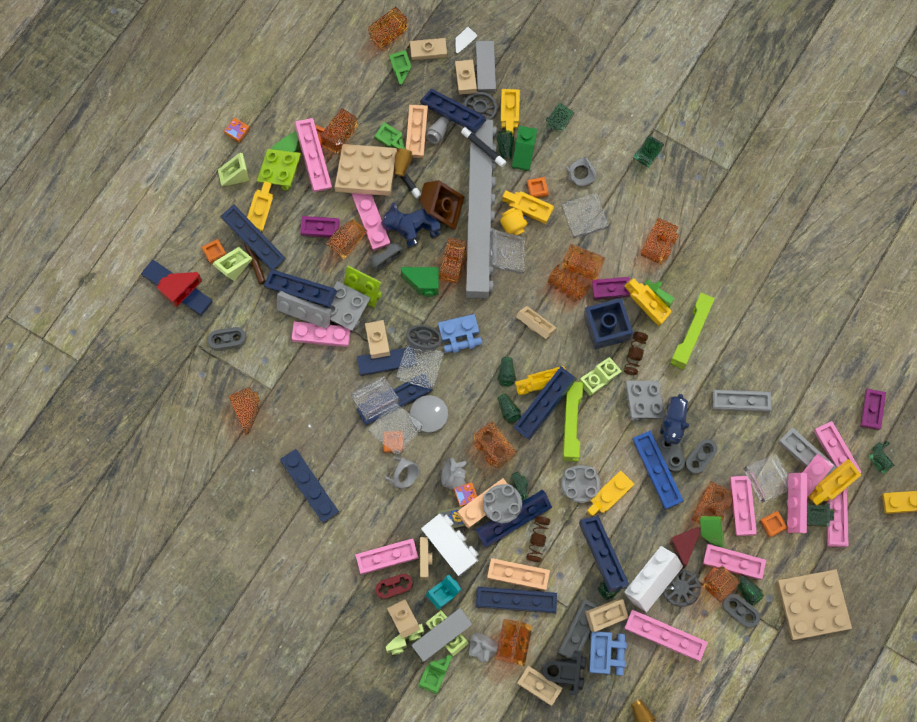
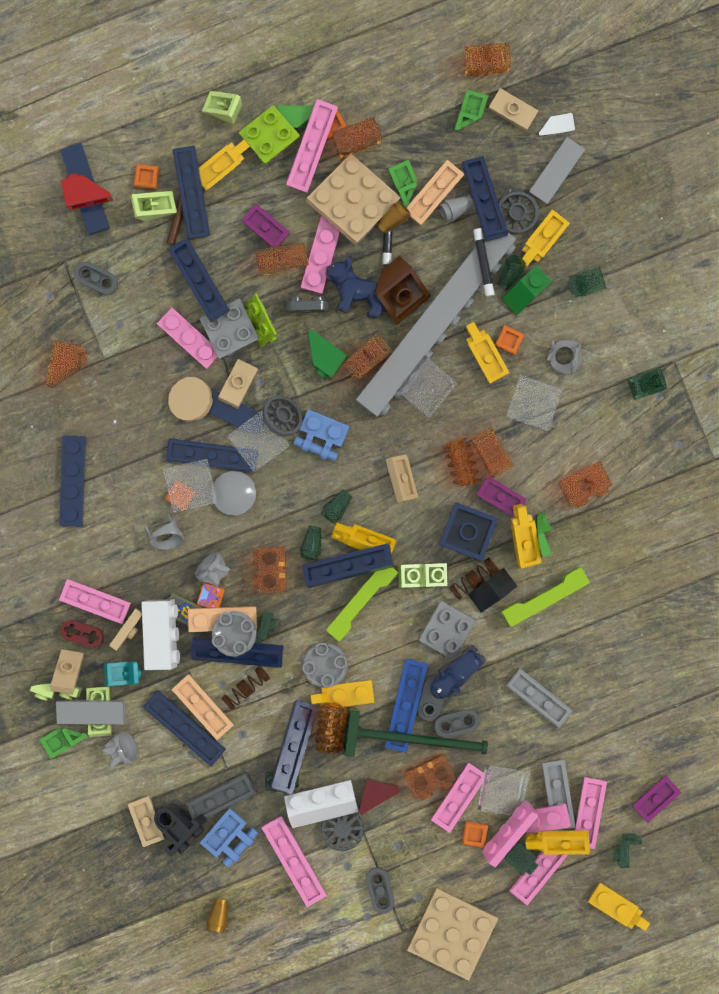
camera: 35 degrees right, 15 degrees up
(236, 130) = (258, 61): orange tile -> none
(303, 309) = (187, 303): light grey plate -> none
(352, 371) = (190, 399): none -> tan tile
(375, 398) = (192, 442): clear tile -> none
(465, 77) = (527, 169): tan plate -> none
(513, 221) = (457, 360): yellow head -> none
(514, 642) = (150, 767): clear orange brick -> none
(606, 615) = (254, 804): tan plate -> none
(620, 519) = (331, 728): none -> clear orange piece
(636, 511) = (354, 732): none -> dark green tile
(653, 353) = (492, 590): none -> black slope
(712, 530) = (410, 800): bright green slope -> none
(720, 583) = (378, 854): clear orange brick -> none
(734, 562) = (409, 842): bright pink plate -> none
(750, 591) = (402, 877): clear green cone -> none

